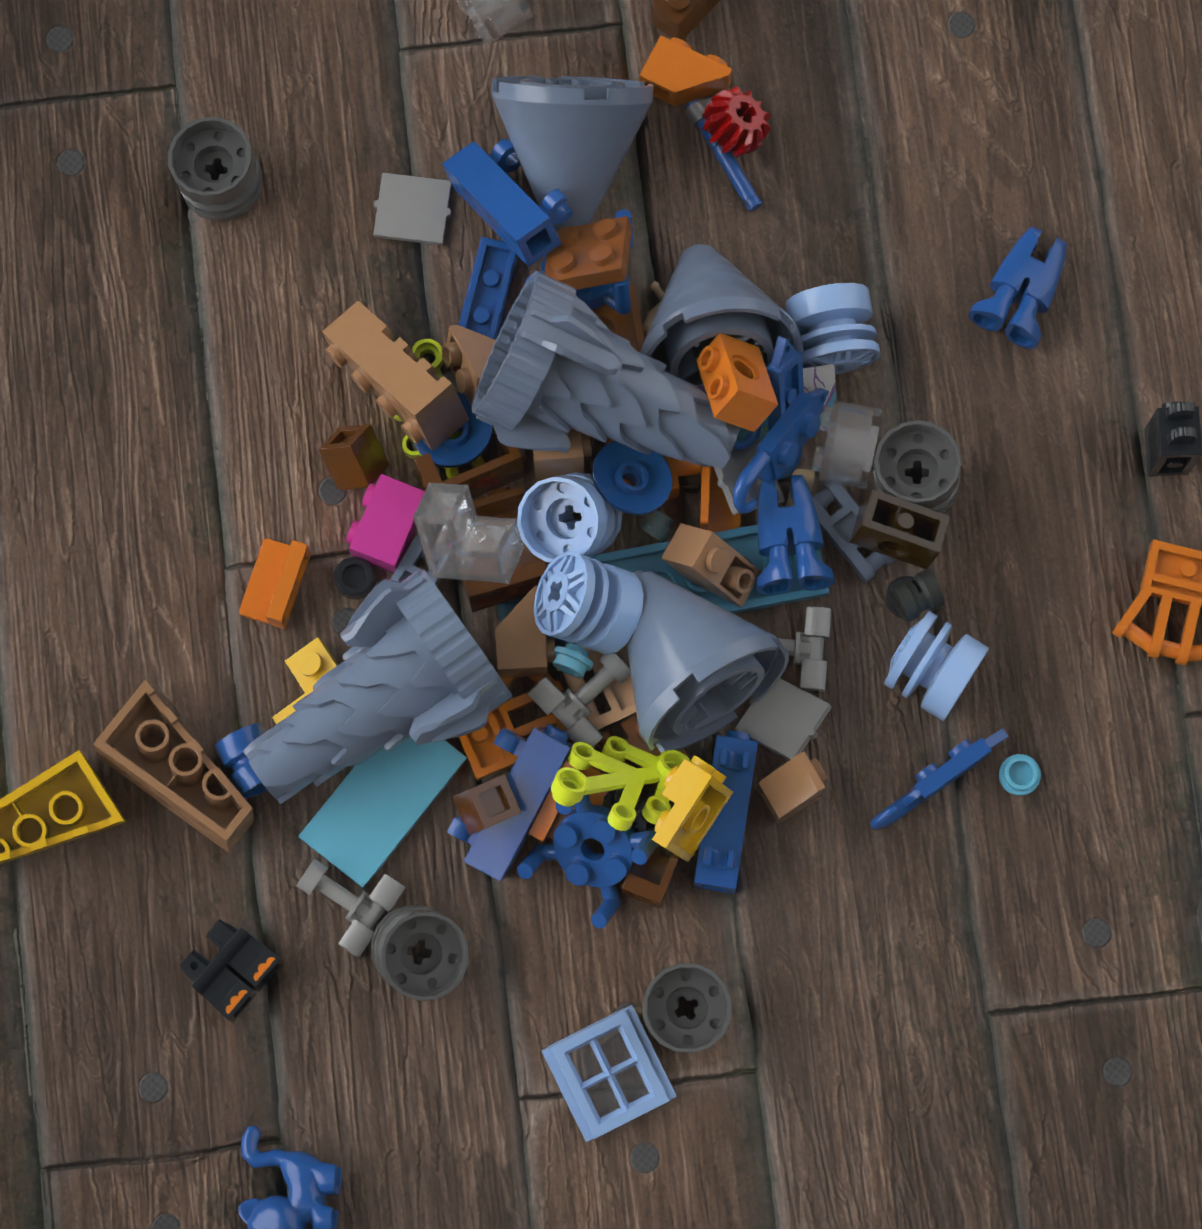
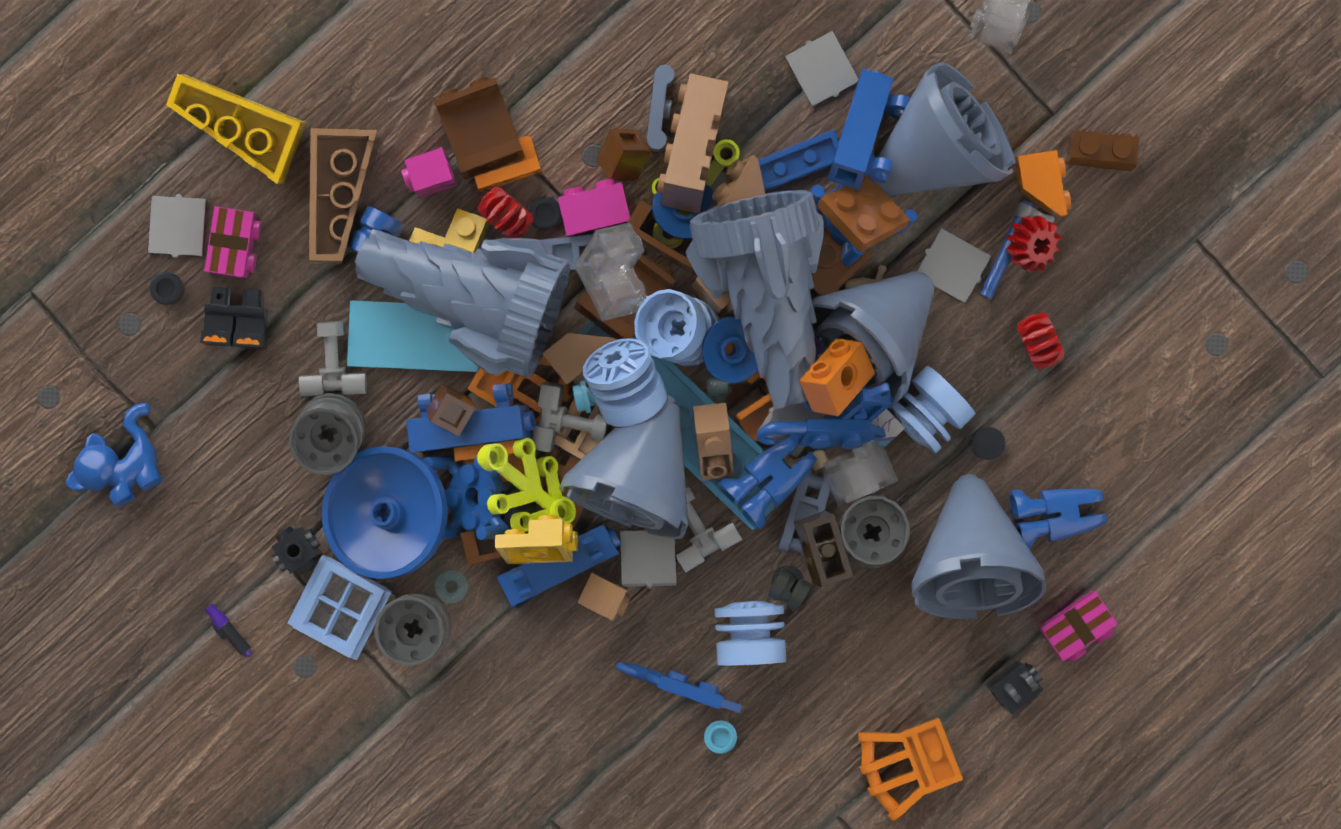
camera: 55 degrees right, 10 degrees up
(88, 963) = (177, 226): none -> light grey piece
(145, 1020) = (166, 288): none -> black tile
(149, 915) = (232, 243): none -> brick
(219, 581) = (479, 127): none -> reddish brown panel
(228, 658) = (428, 173): none -> dark pink brick
(323, 612) = (505, 213): none -> red gear
(334, 388) = (660, 108): none -> sand blue plate
(517, 1092) = (308, 550): none -> black brick
(544, 953) = (385, 513): none -> blue dish
(547, 1213) = (225, 629): none -> piece
(669, 928) = (440, 586): none -> clear light blue plate
(702, 216) = (954, 265): none -> light grey piece
(839, 179) = (1040, 340): none -> red gear
(905, 304) = (988, 443): none -> black tile
(1018, 386) = (976, 559): none -> sand blue cone
(1153, 341) = (1078, 626): none -> brick

